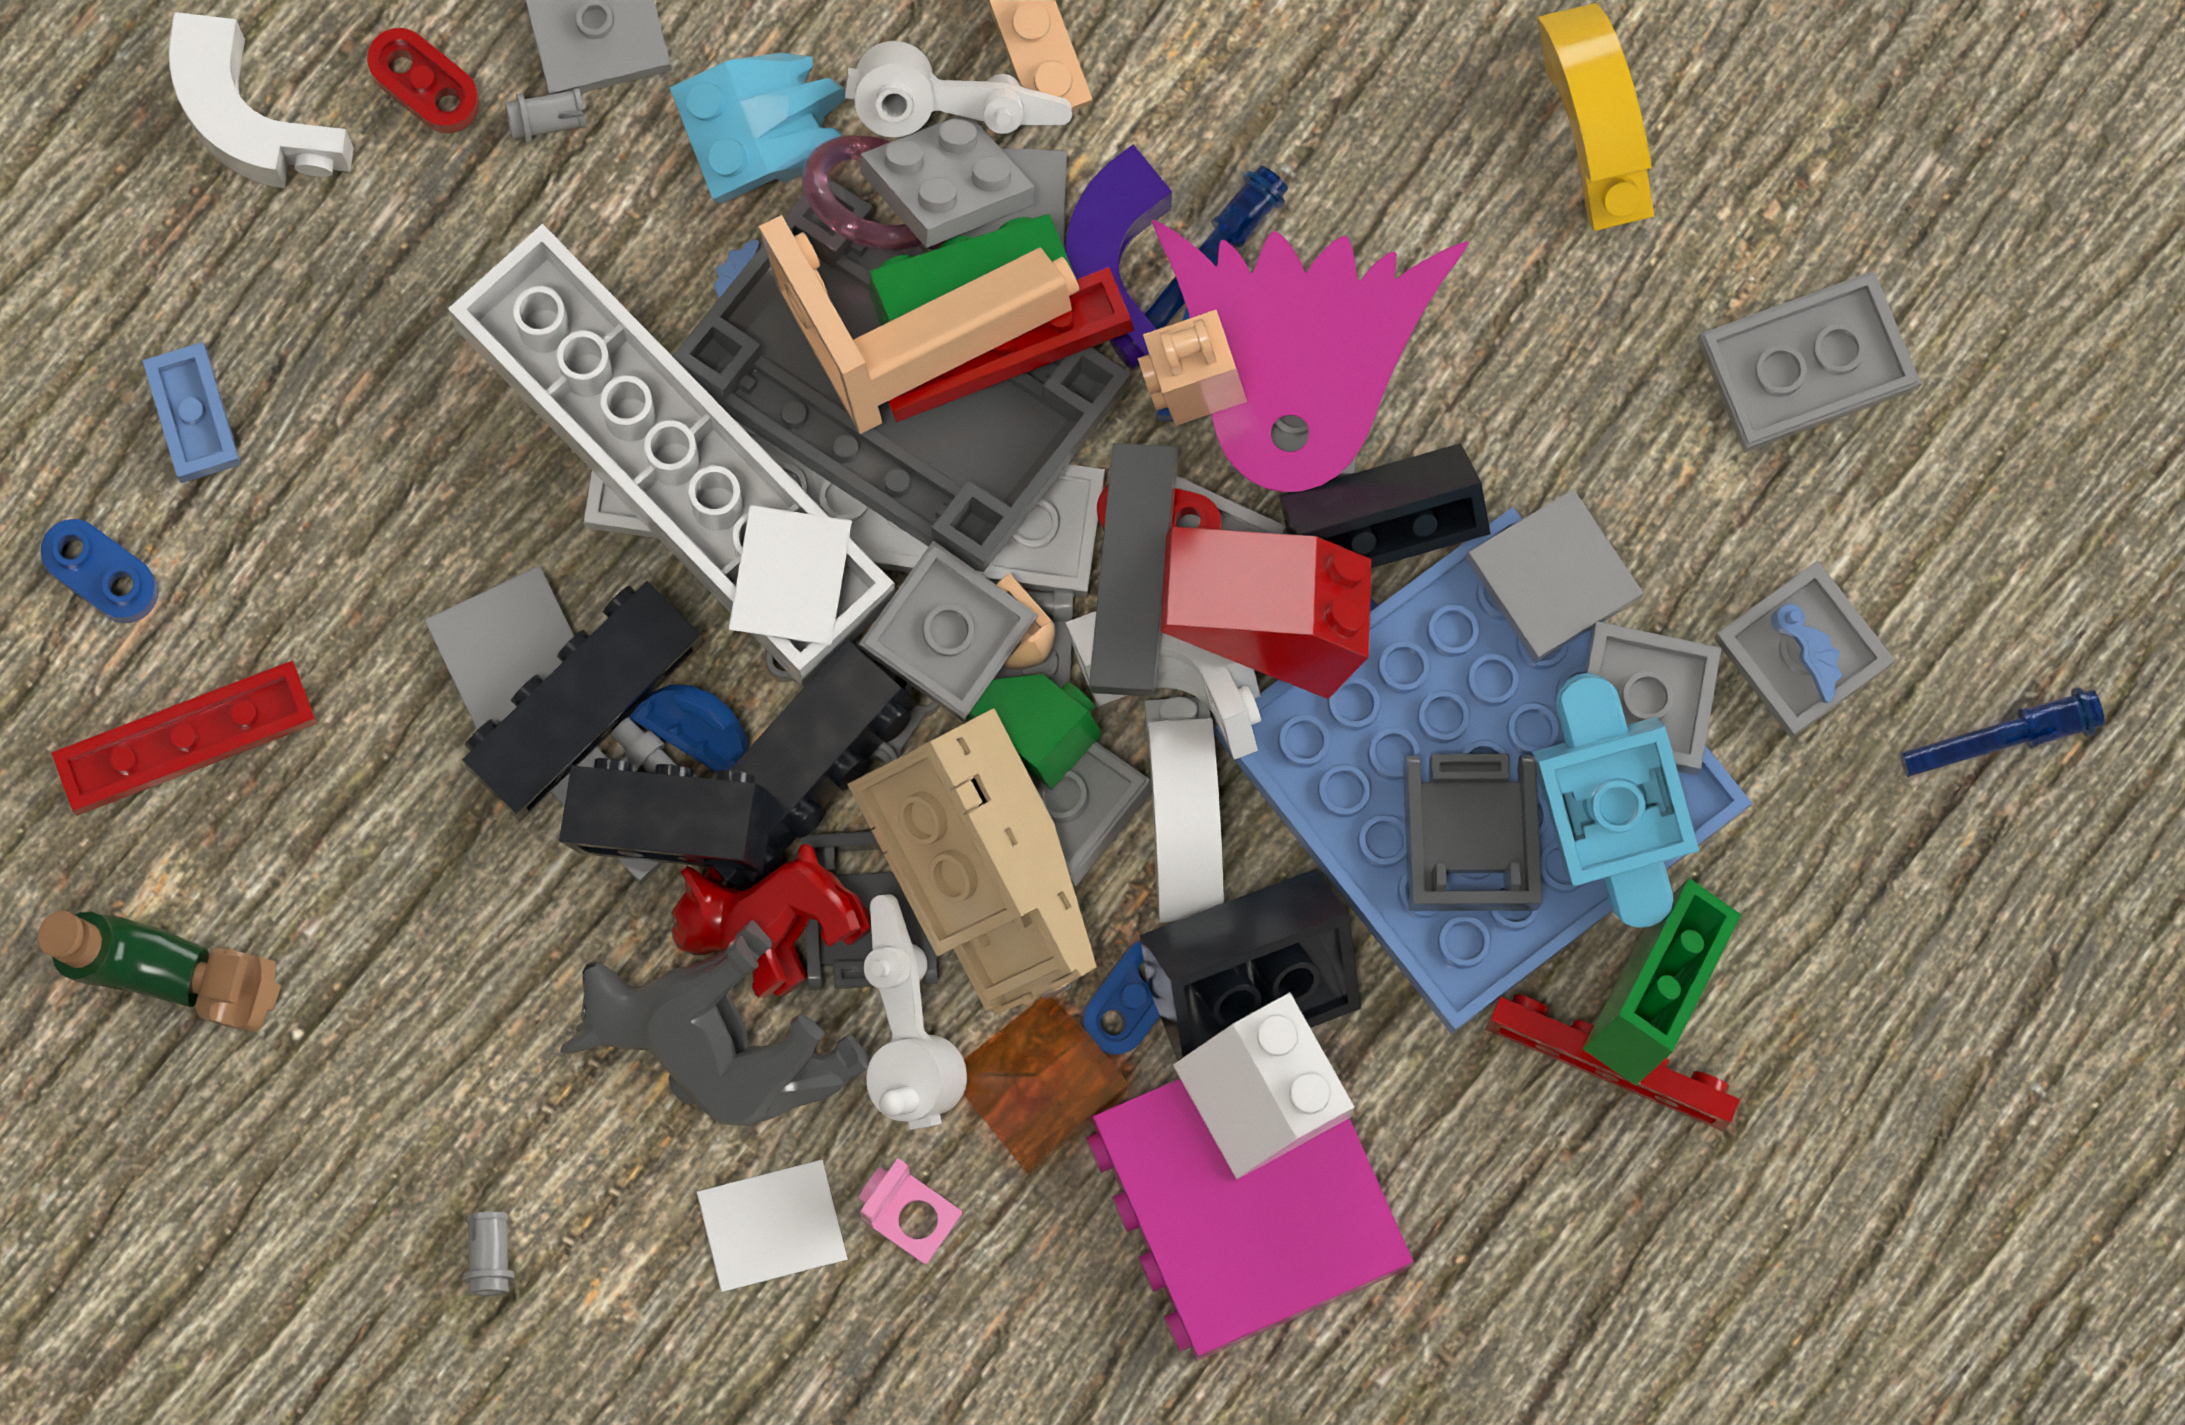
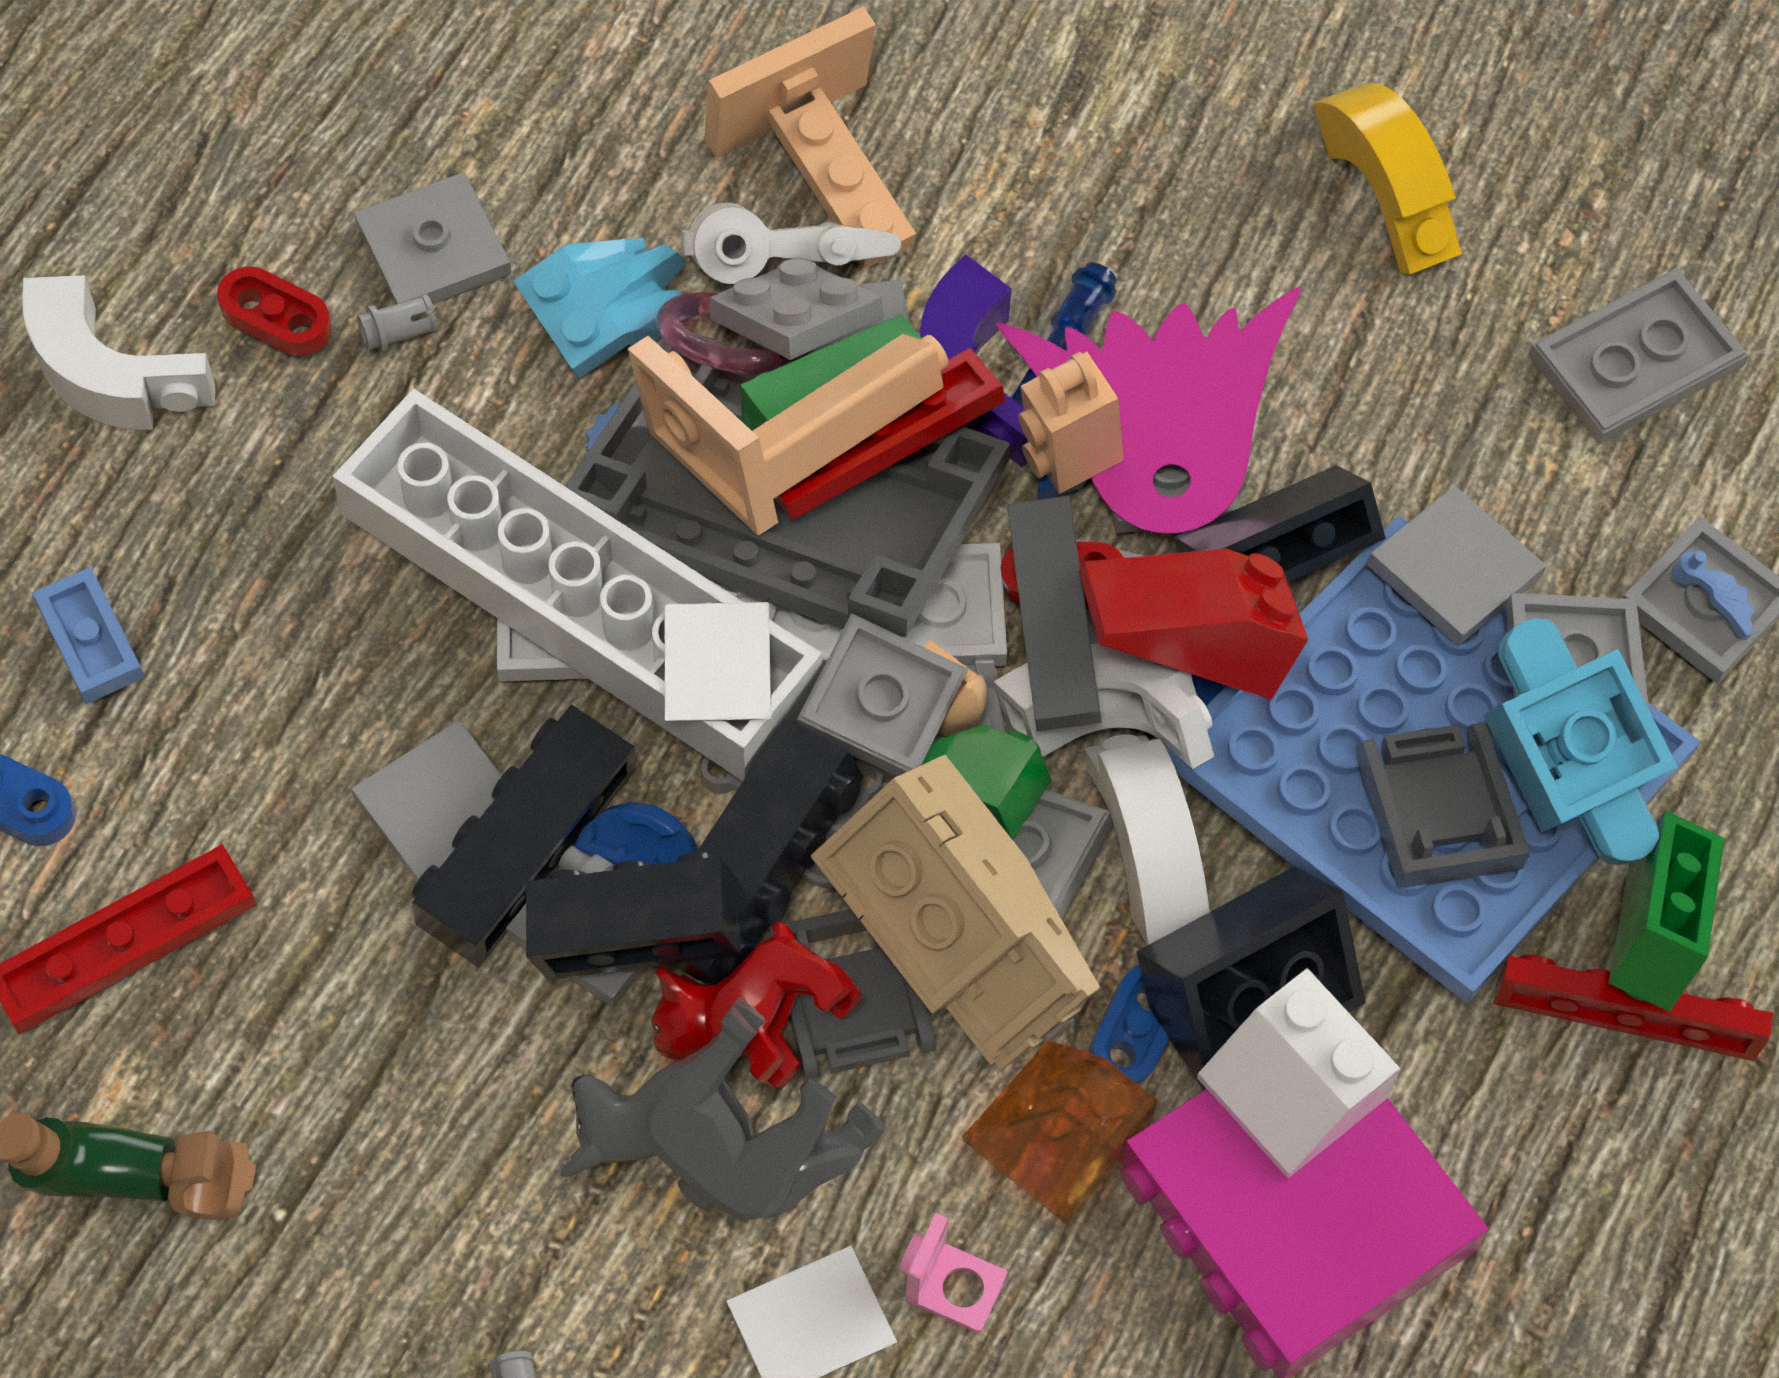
camera: 10 degrees left, 15 degrees down
(915, 1072) = (926, 1132): white piece -> none

